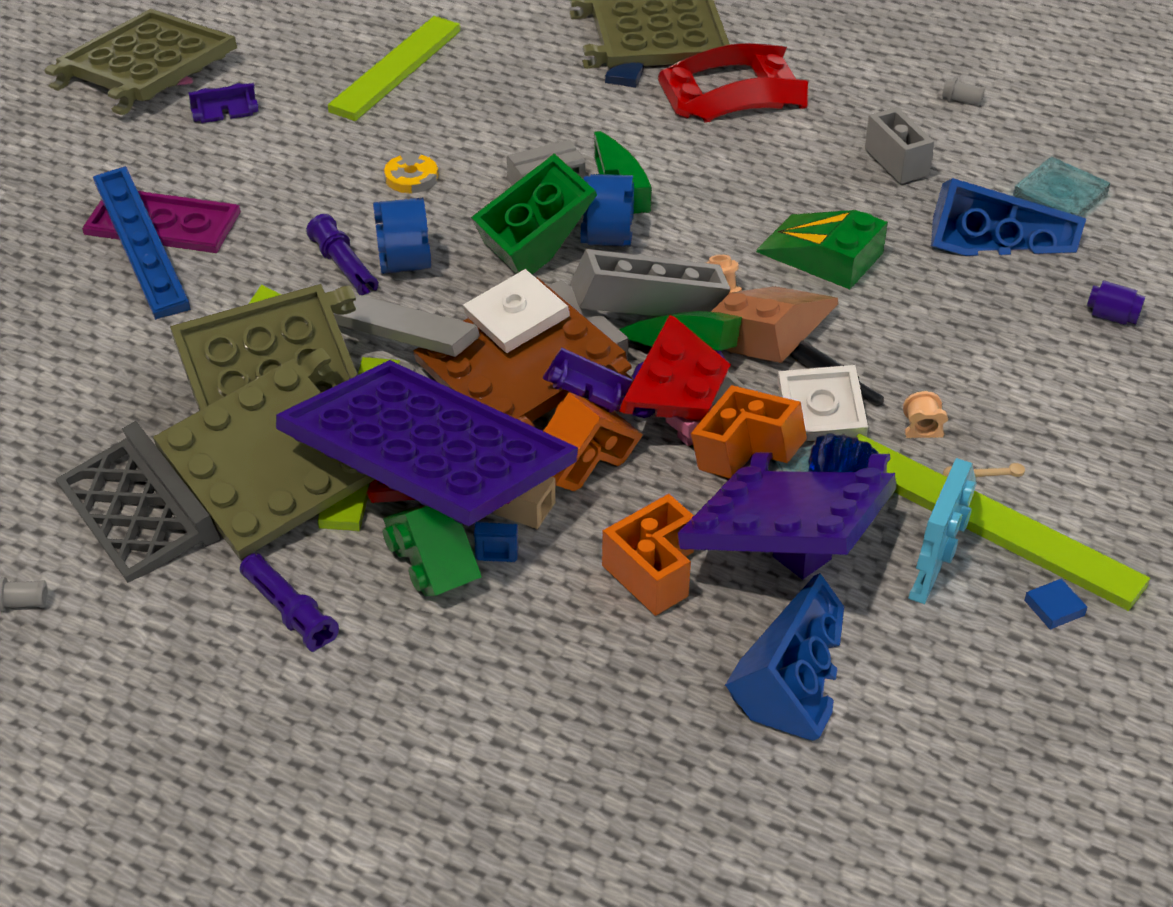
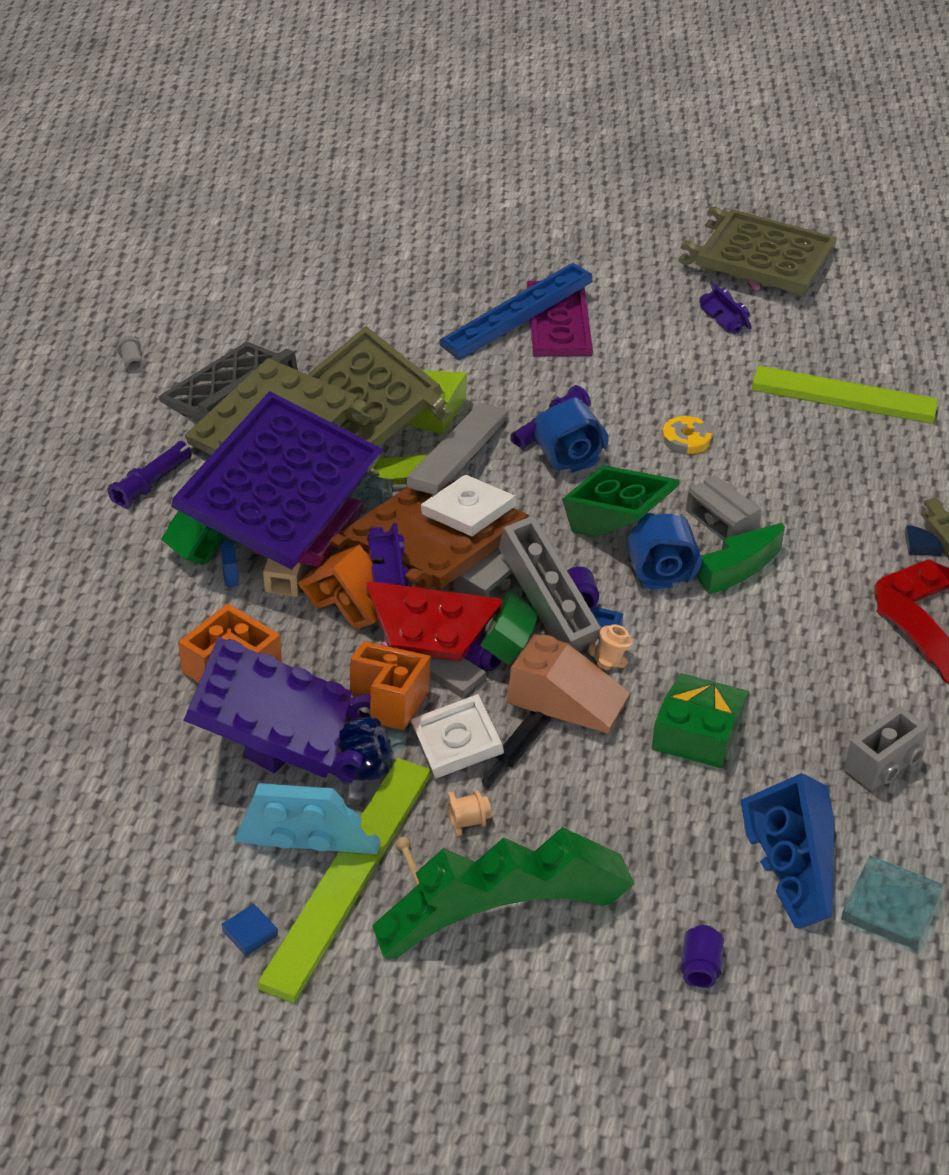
camera: 75 degrees right, 0 degrees up
(786, 668) = (129, 751): blue wedge -> none
(1065, 406) = (506, 874): none -> green arch

